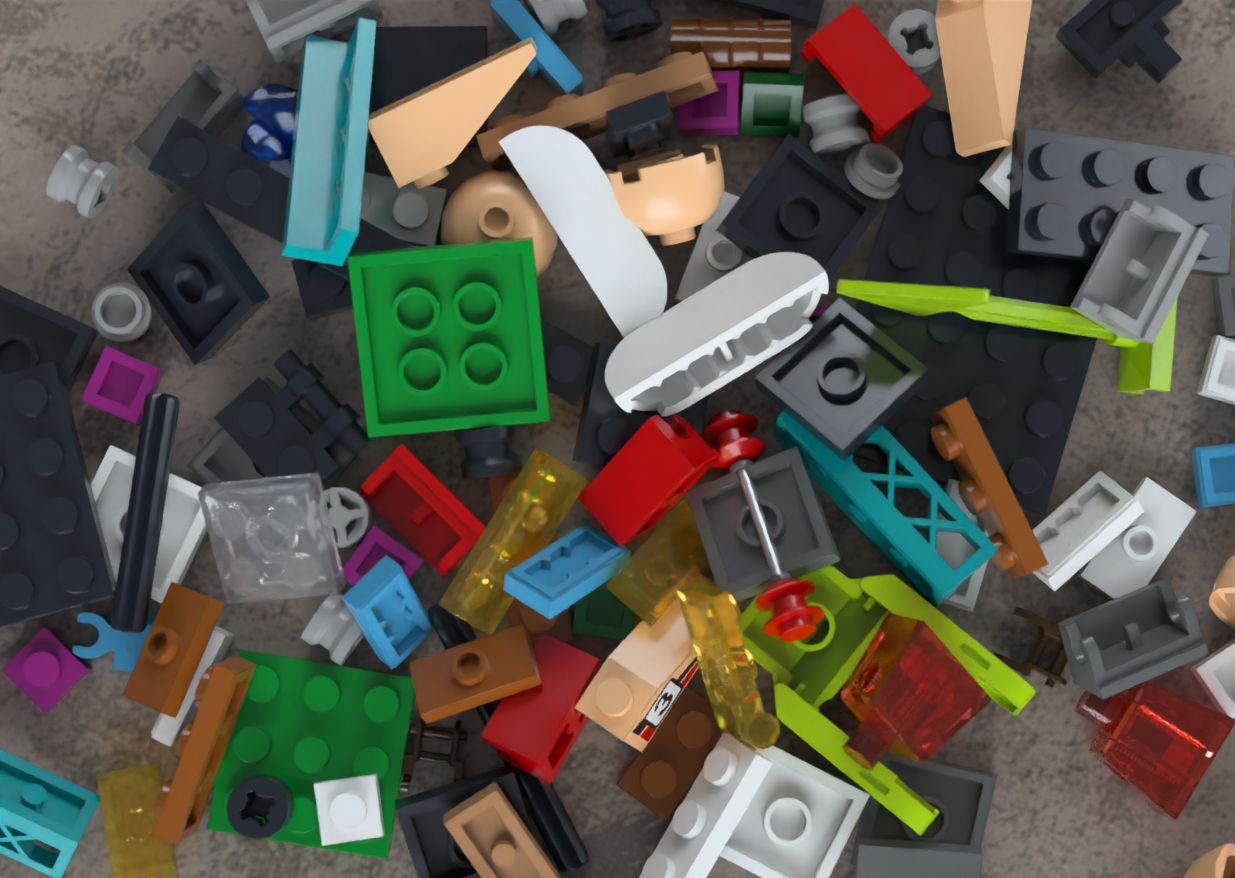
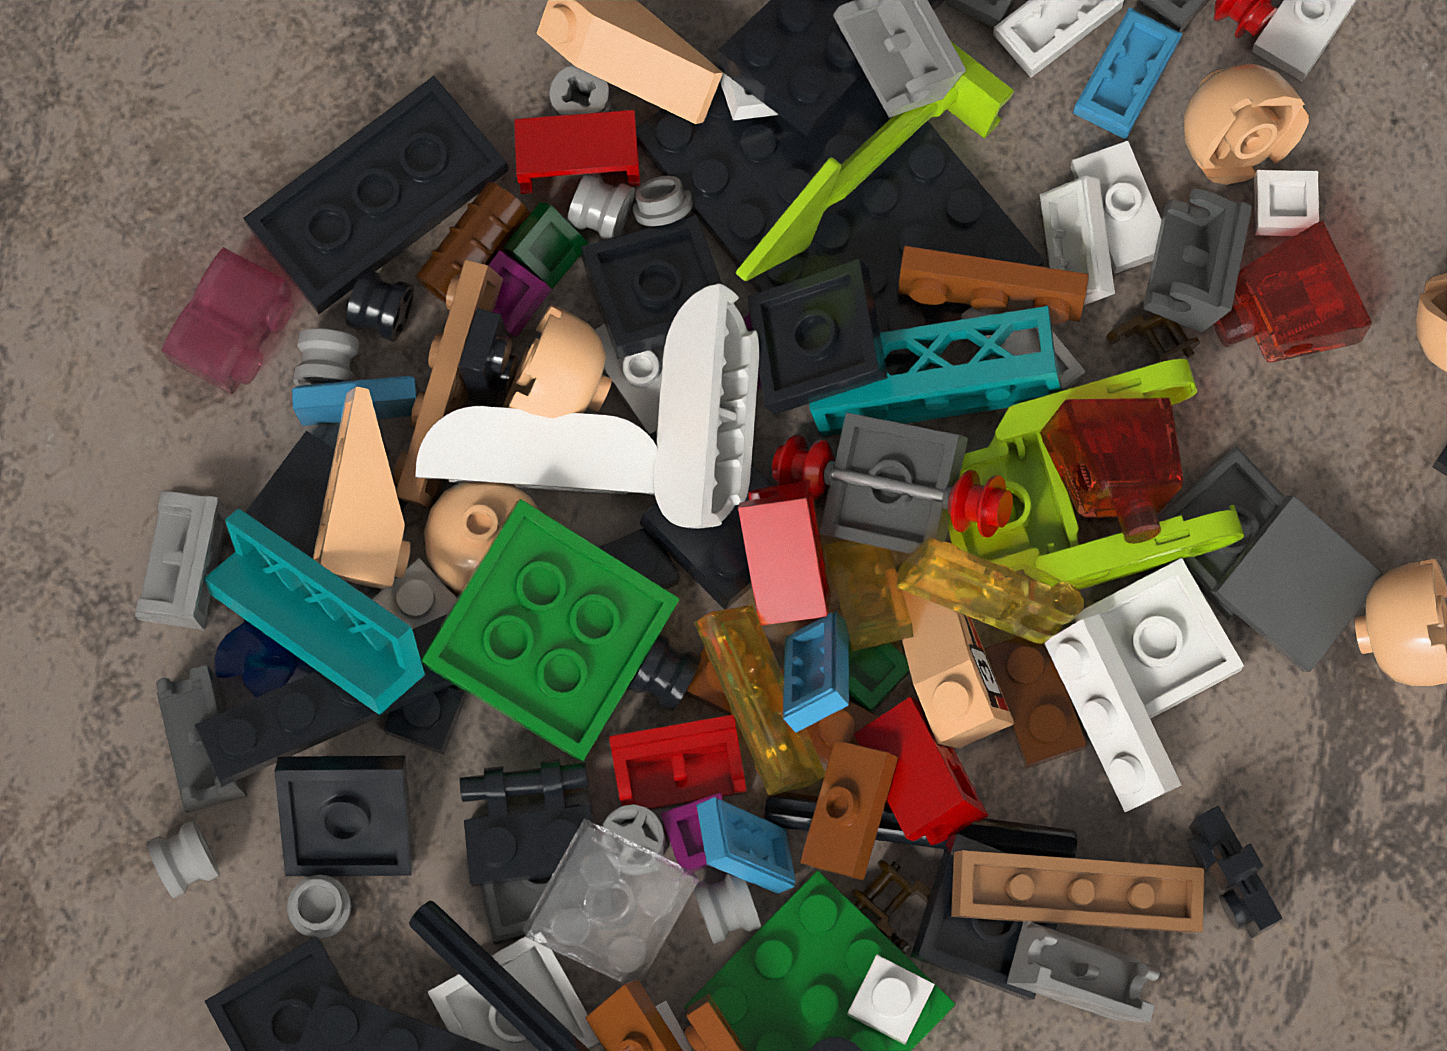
camera: 45 degrees left, 10 degrees down
(121, 385) = (383, 948): magenta plate -> none

